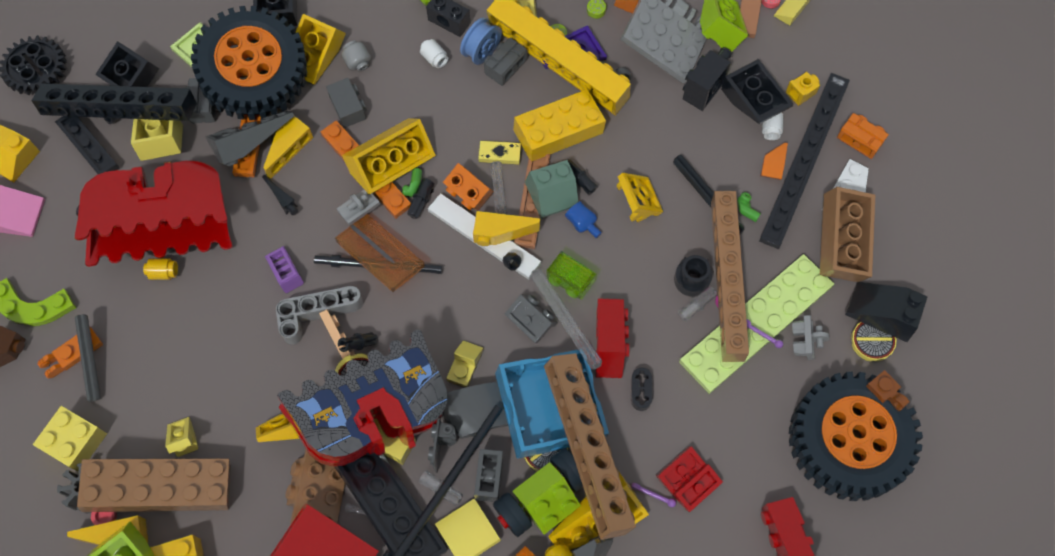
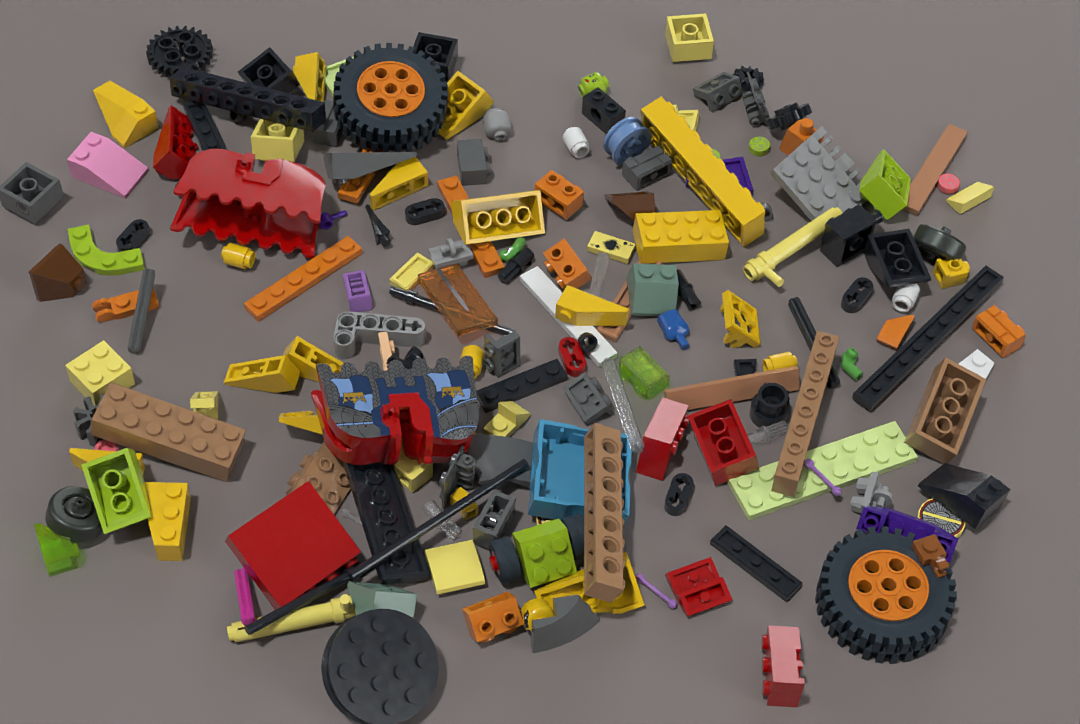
camera: 15 degrees right, 15 degrees down
(51, 277) = (130, 235): none -> black beam
(62, 168) = (174, 145): none -> red wedge
(167, 57) = (311, 73): none -> yellow slope
(226, 388) = (266, 374): none -> yellow slope
(229, 272) = (302, 278): none -> orange plate
(230, 203) = (326, 219): none -> dark purple hand
(272, 362) = (307, 356): none -> yellow slope
(319, 167) = (424, 211): none -> black beam
(324, 241) = (407, 275): none -> light yellow tile
(358, 323) = (414, 353): none -> black hinge
(413, 313) = (478, 357): none -> yellow brick
(437, 113) = (560, 194): none -> orange brick
(441, 301) = (503, 354): none -> dark grey bracket
(449, 460) = (468, 512): none -> yellow piece
(465, 321) = (522, 385): none -> black plate
(498, 280) = (567, 357): none -> red beam
(506, 102) = (633, 202): none -> reddish brown slope
(643, 126) = (767, 260): none -> light yellow cylinder
(655, 267) = (732, 388): none -> nougat tile
(656, 241) = (744, 366): none -> black tile
(666, 327) = (723, 442): none -> red brick
(687, 229) = (779, 361): none -> yellow brick
(725, 134) = (853, 293): none -> black beam
(730, 436) = (756, 563): none -> black tile
(786, 64) = (939, 243): none -> pearl dark grey wheel
(852, 360) = (890, 518): none -> dark purple slope

